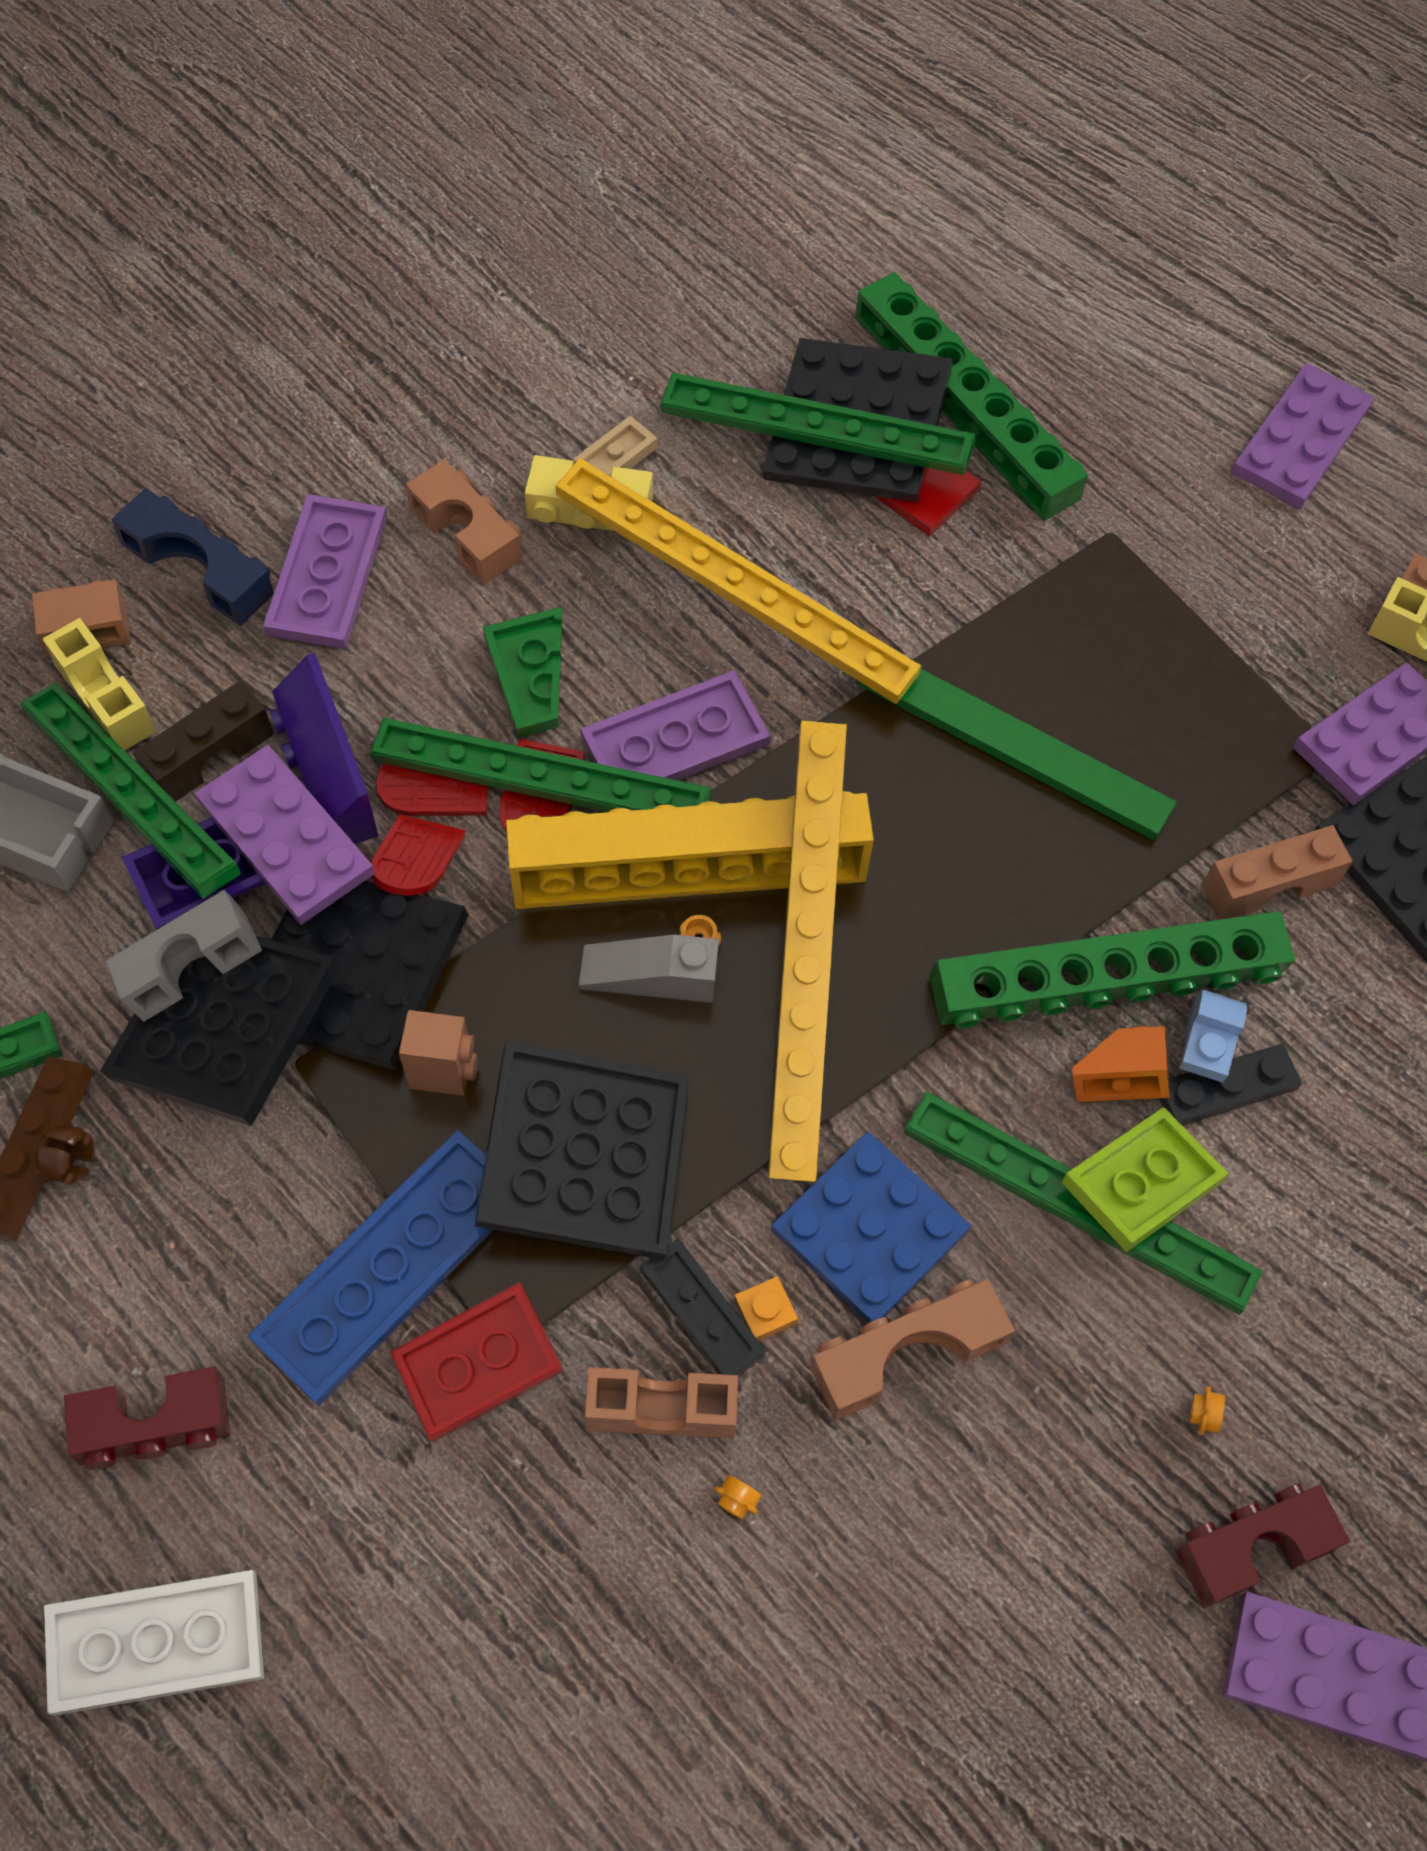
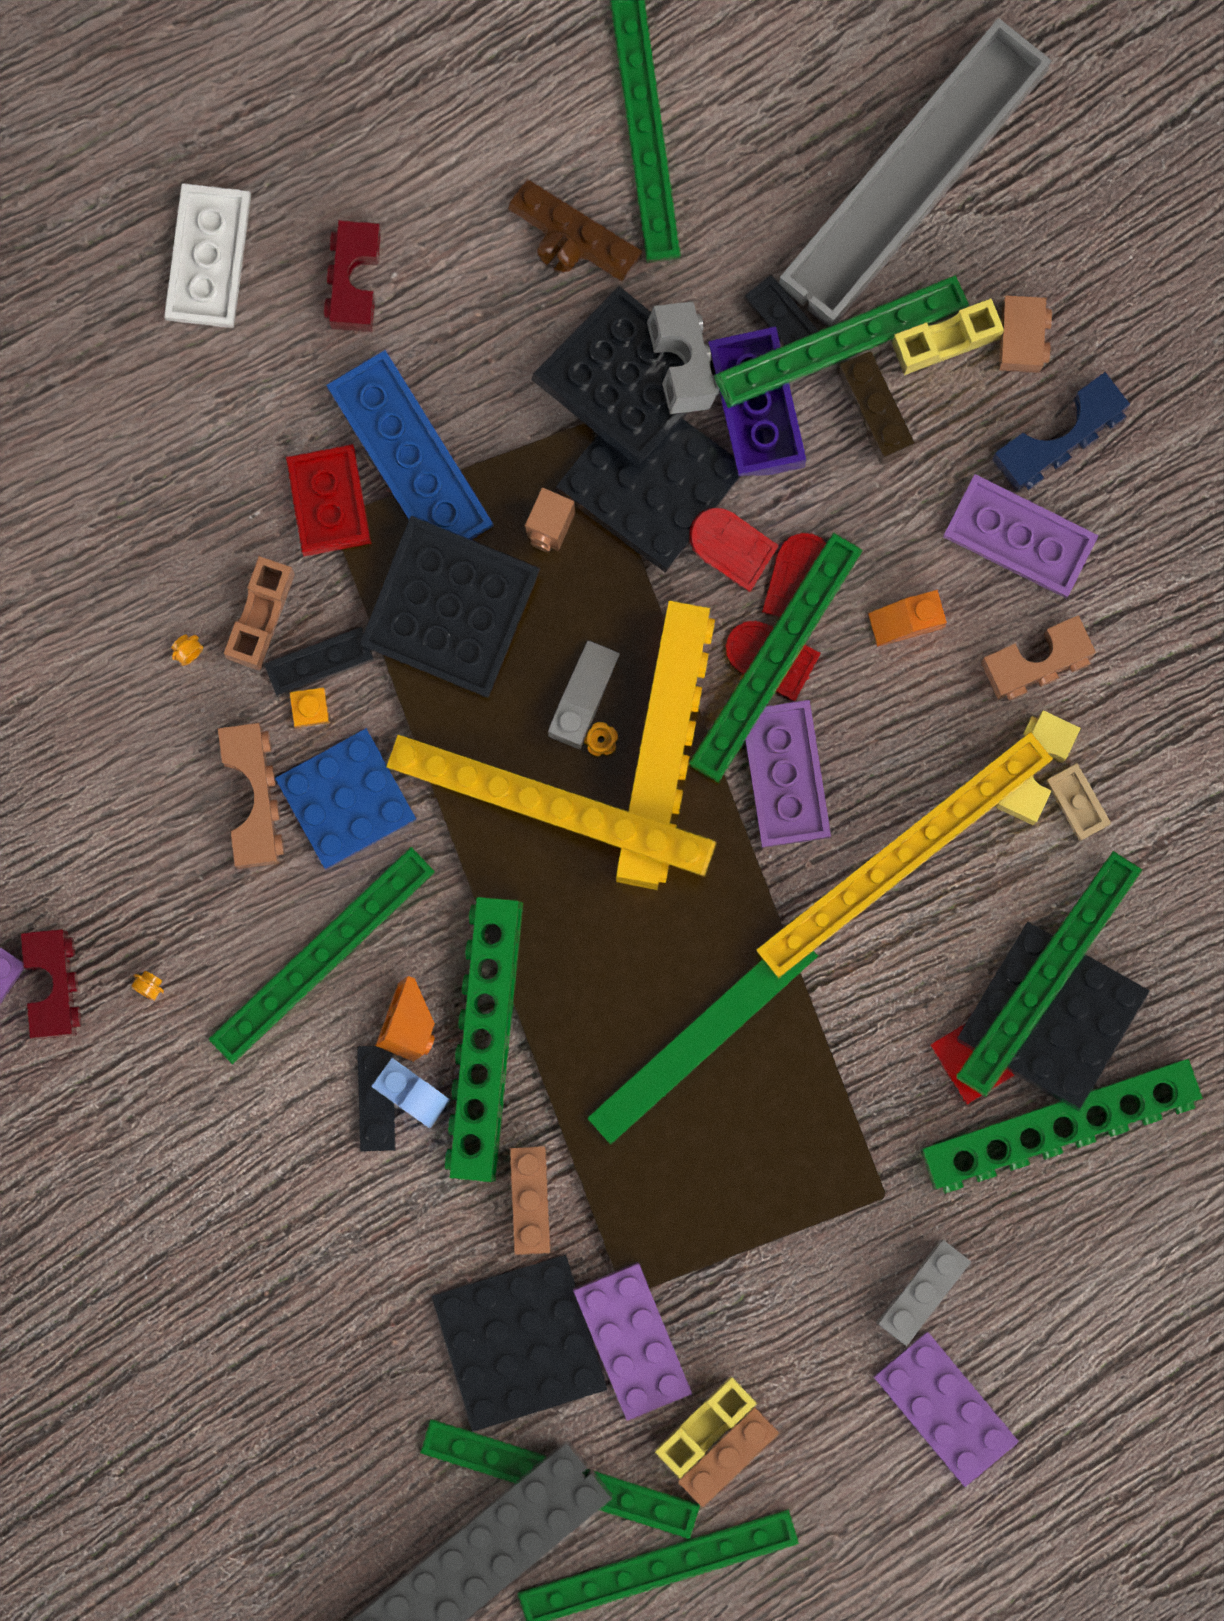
camera: 110 degrees right, 20 degrees up
(101, 876) = (779, 311): none -> black plate
(284, 834) = (759, 447): medium lavender plate -> none
(322, 749) = (834, 495): dark purple slope -> none
(453, 653) = (908, 618): none -> orange slope
(529, 668) = (881, 675): green wing -> none
(1144, 1179) = (319, 1002): lime plate -> none
(1224, 472) = (923, 1292): none -> light grey arch

